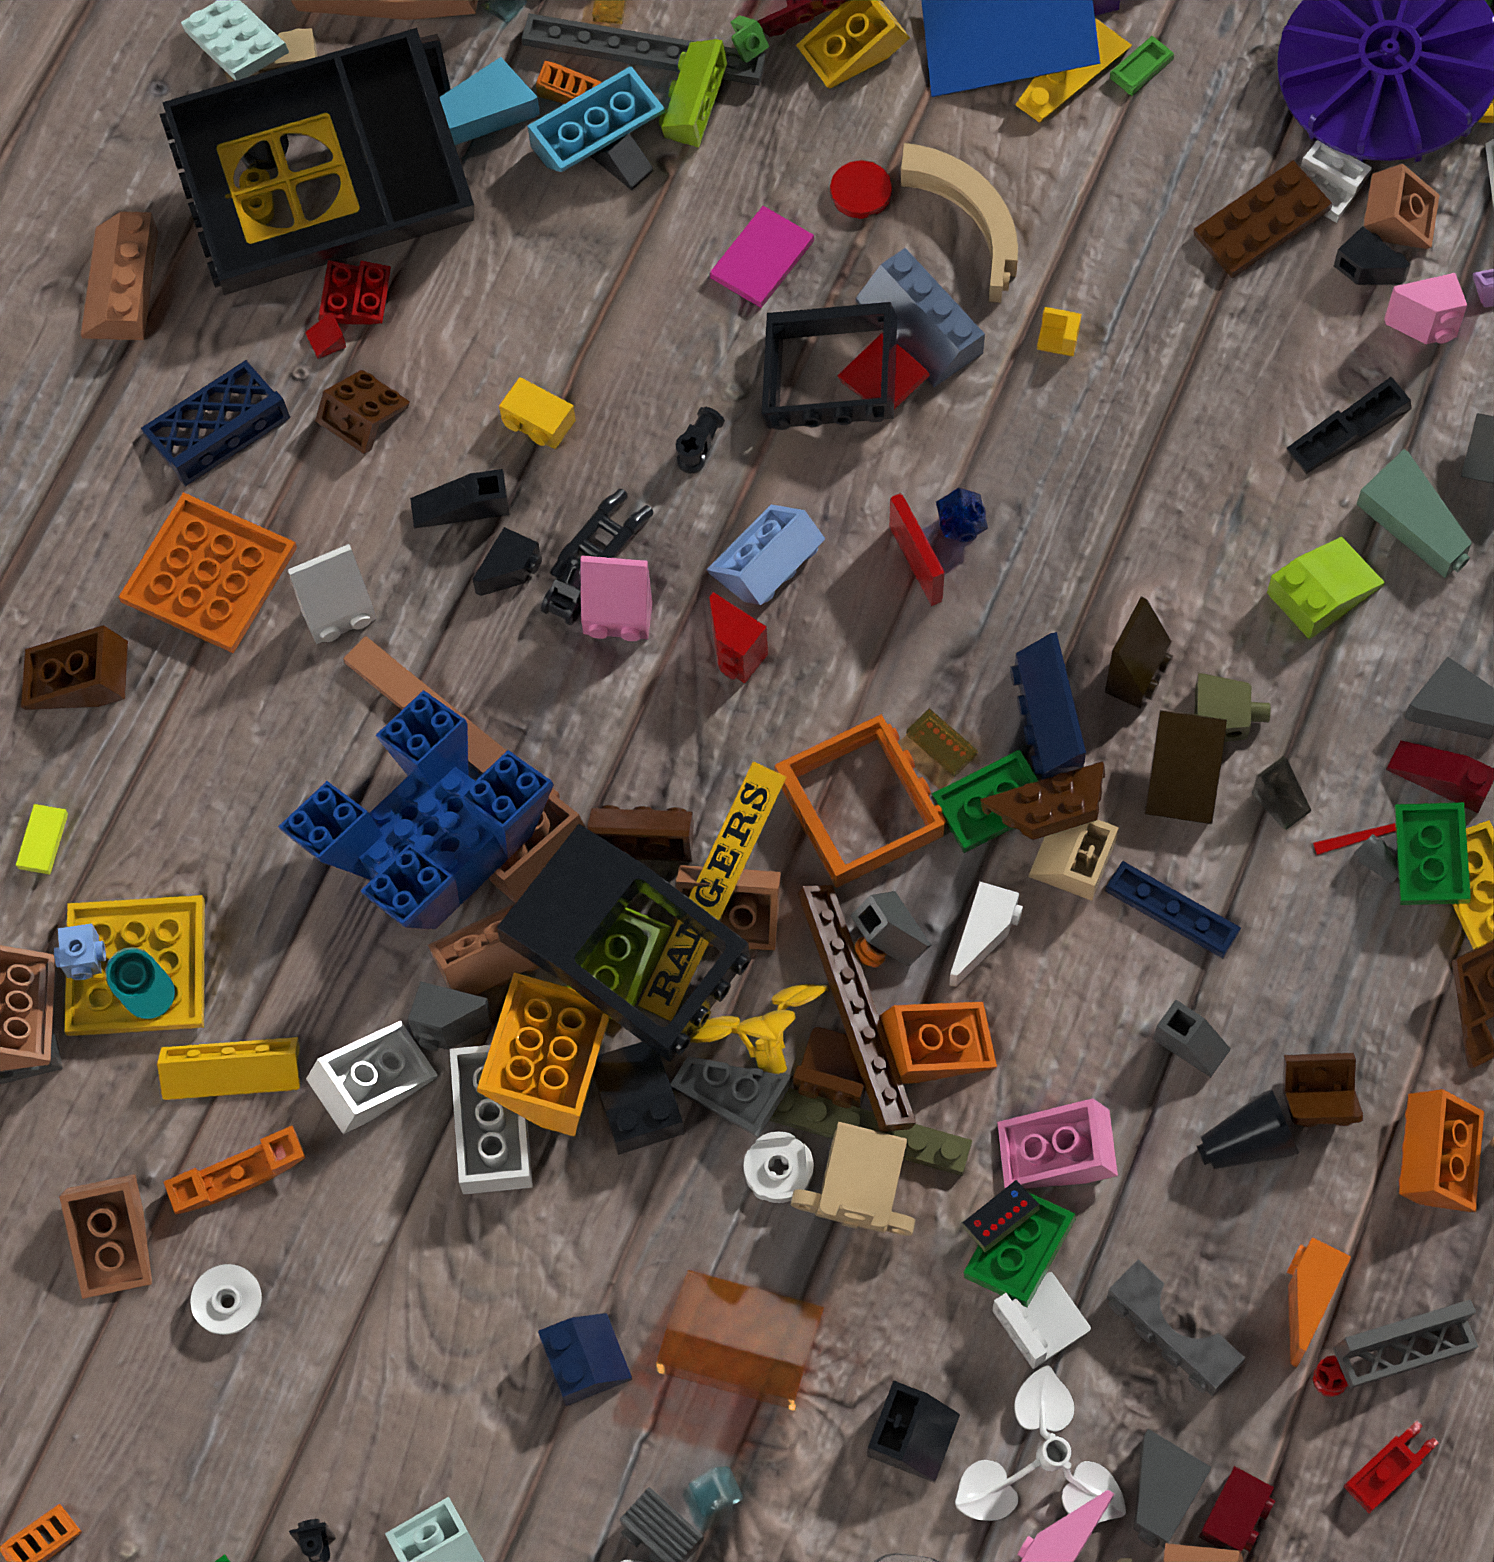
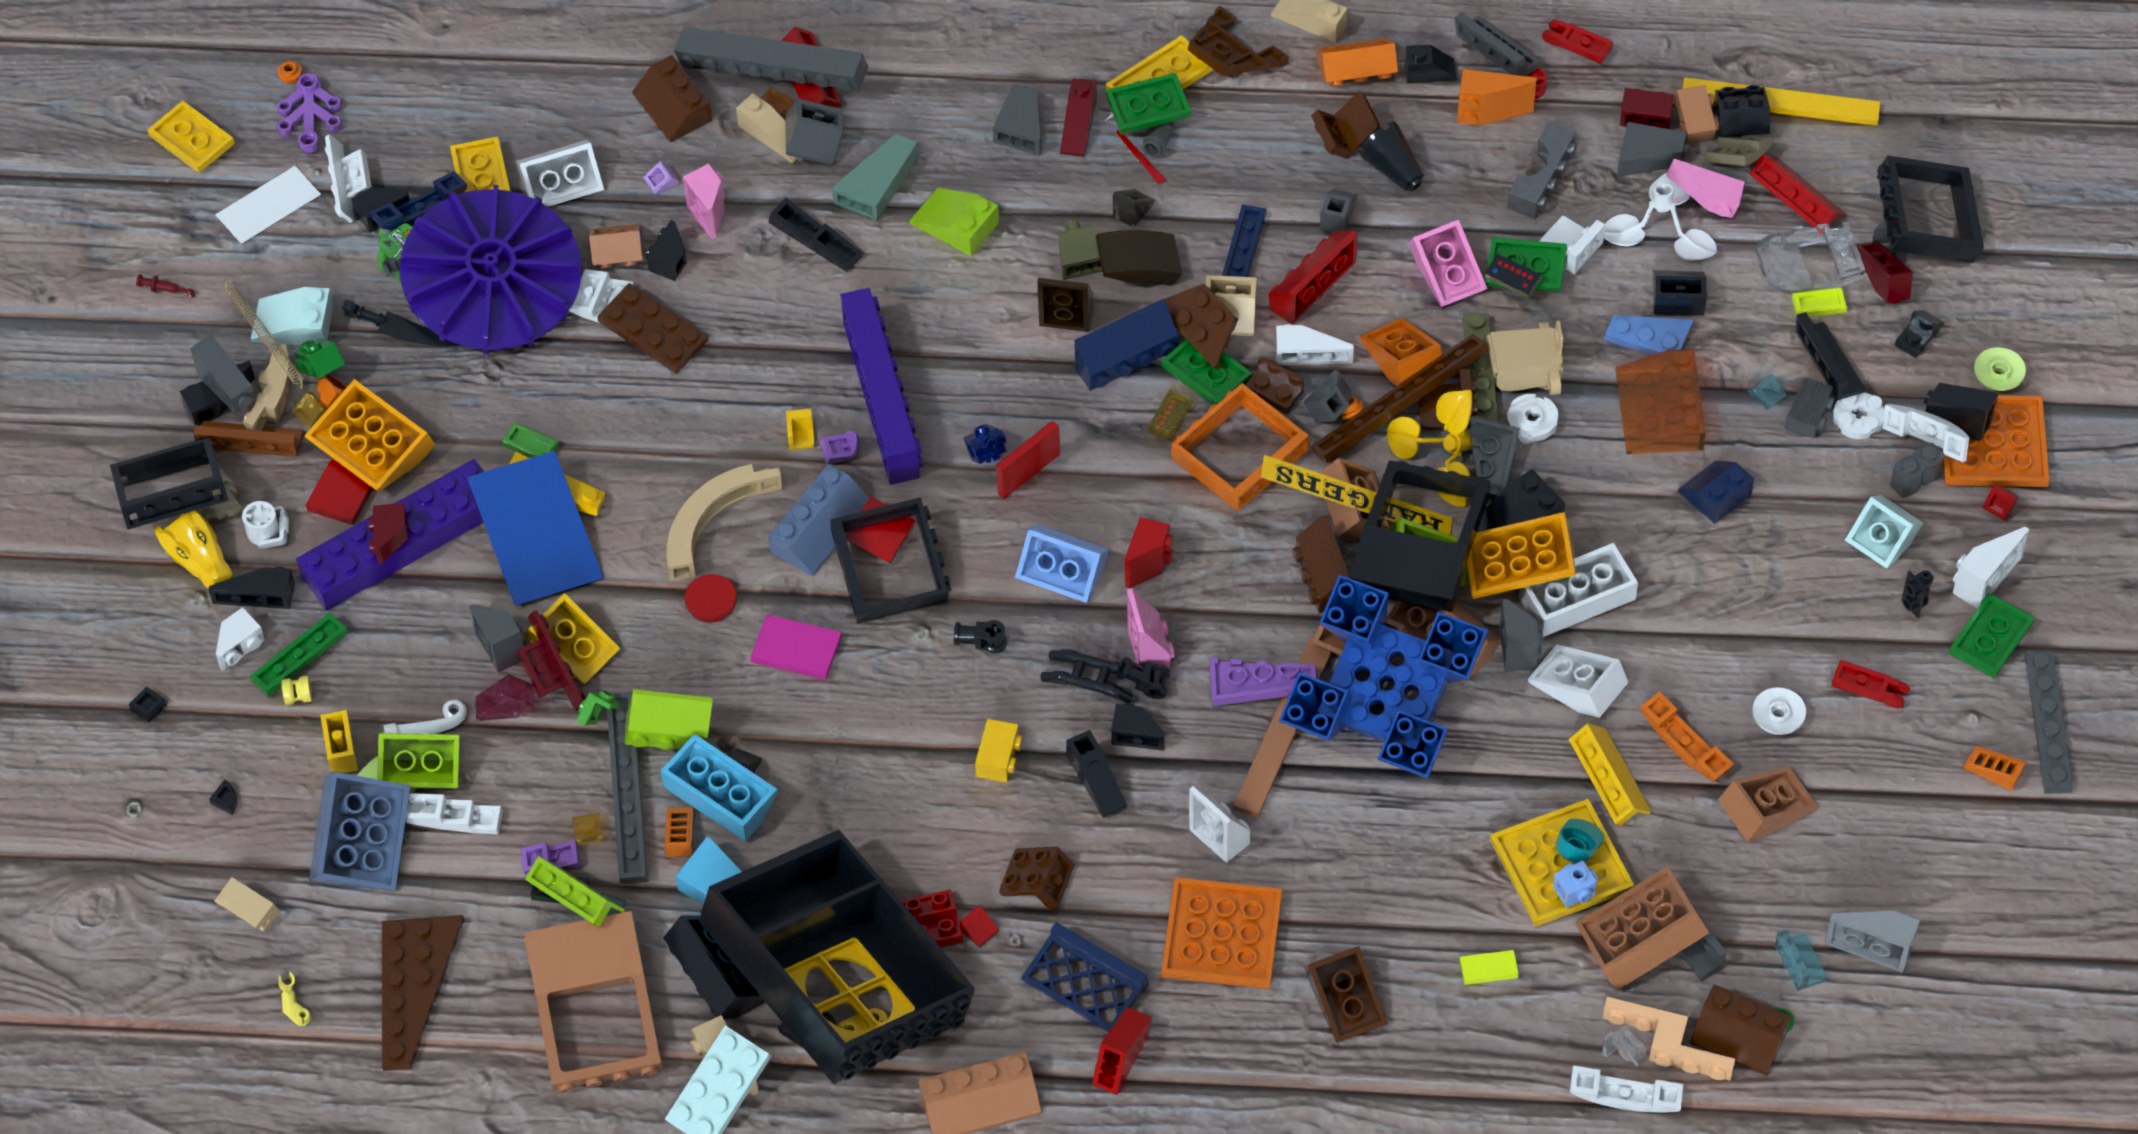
camera: 110 degrees left, 10 degrees down
(109, 425) = (1120, 1050): none -> red slope
(221, 1430) = (1869, 684): none -> red hinge
(517, 707) = (1247, 682): none -> medium lavender wing
(857, 1373) = (1648, 334): none -> medium blue wing
(939, 874) = (1276, 385): none -> reddish brown bracket
(1018, 366) = (840, 447): none -> medium lavender plate
(1084, 421) = (881, 386): none -> dark purple brick
(1089, 969) = (1314, 275): none -> red slope
(1404, 1245) = (1428, 64): none -> black slope

